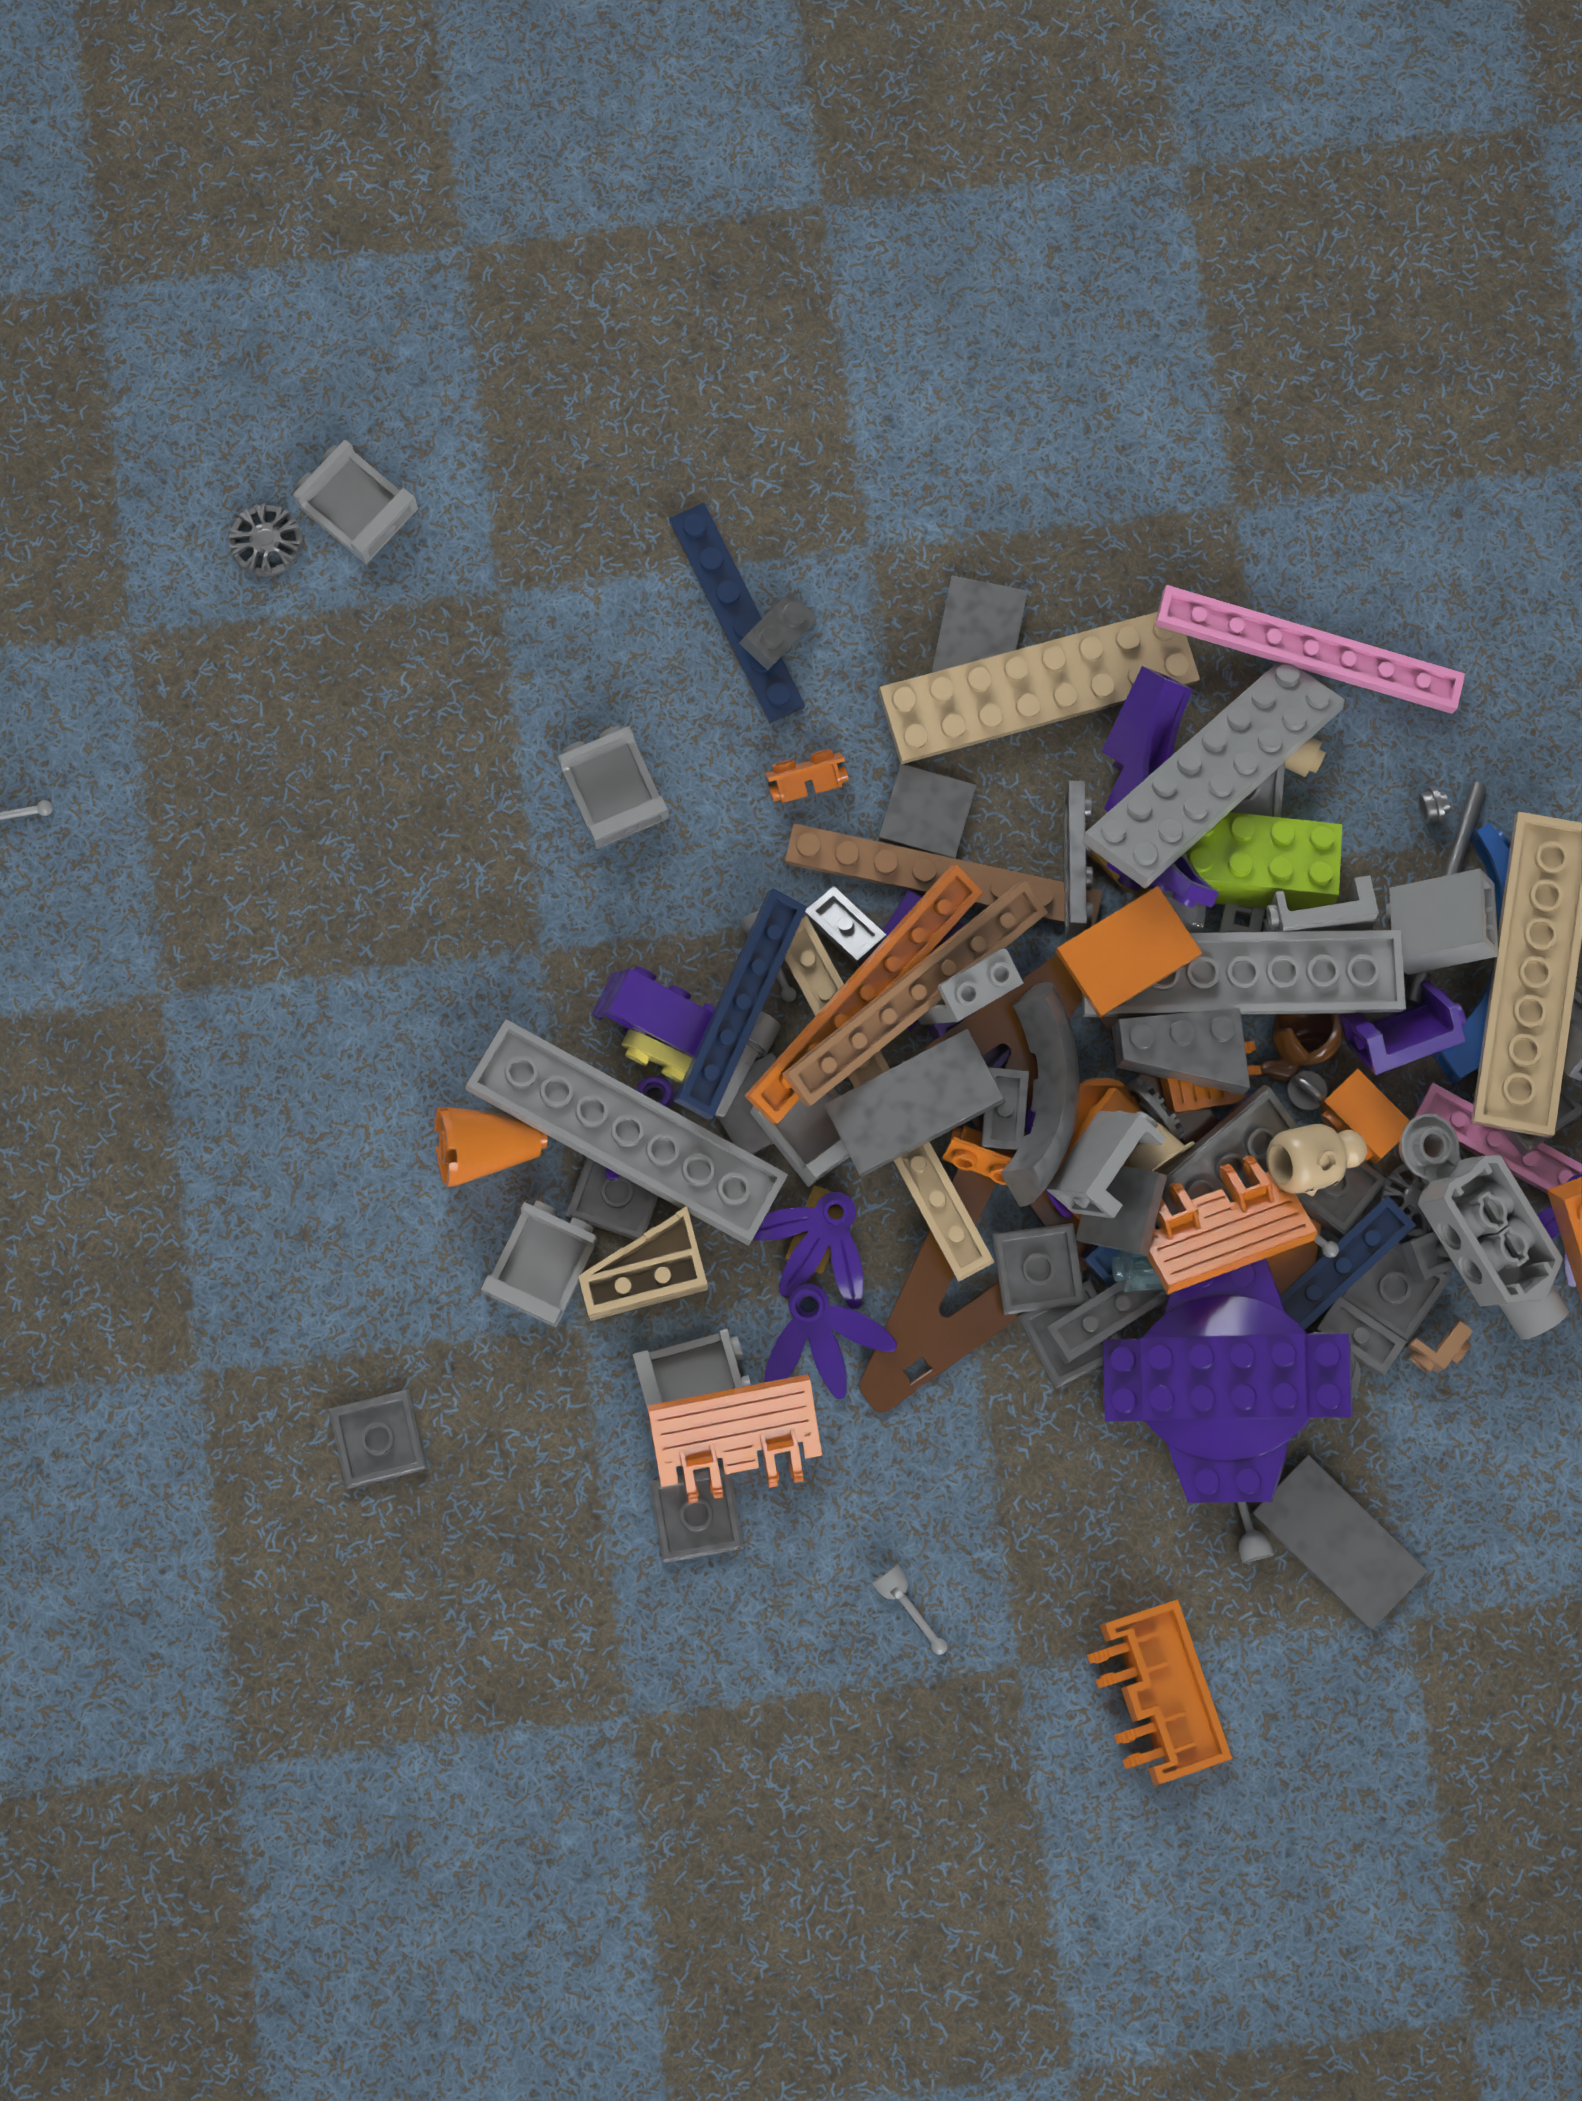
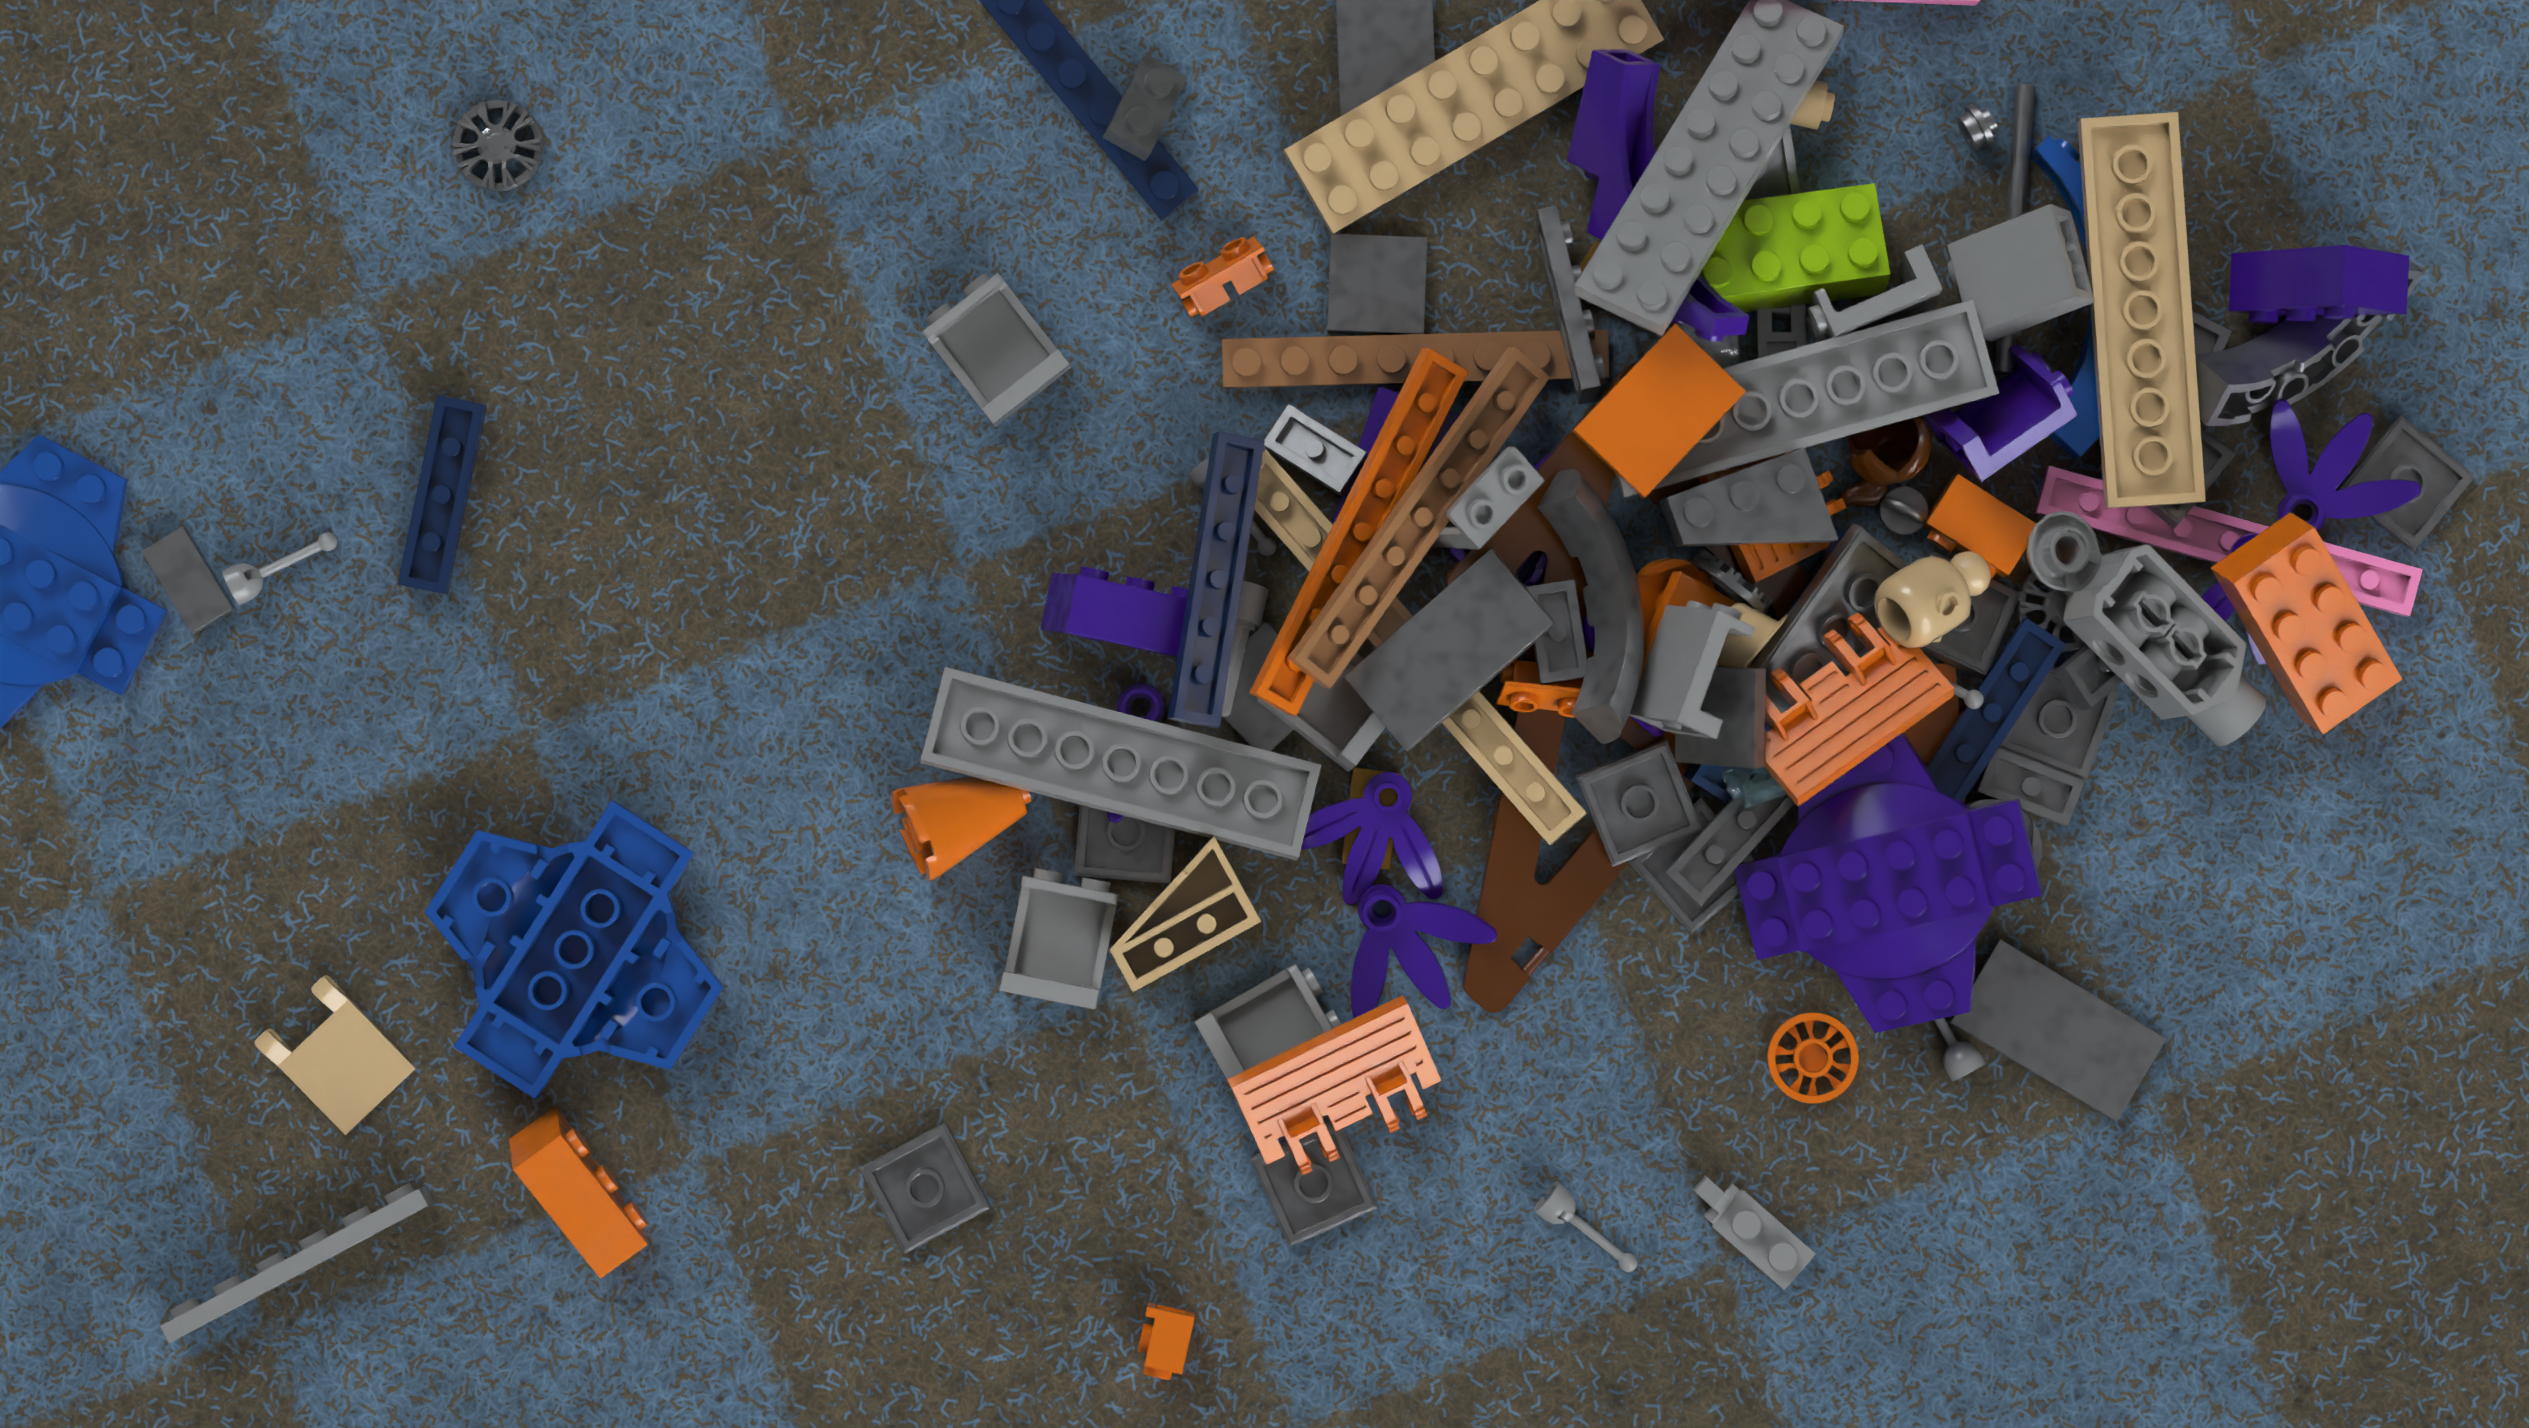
camera: 15 degrees left, 10 degrees up
(94, 1370) = (577, 1192): none -> orange wedge
(145, 793) = (442, 494): none -> dark blue plate
(147, 1172) = (574, 949): none -> blue plate
(354, 501) = (592, 71): light grey panel -> none
(541, 1613) = (1165, 1340): none -> orange brick
(644, 1049) = (1113, 657): light yellow plate -> none
(1050, 1647) = (1755, 1232): none -> light grey hinge
(1131, 1514) = (1812, 1057): none -> orange wheel
(1167, 1691) = (1900, 1251): orange hinge -> none
(1450, 1348) = (2138, 774): medium nougat bracket -> none

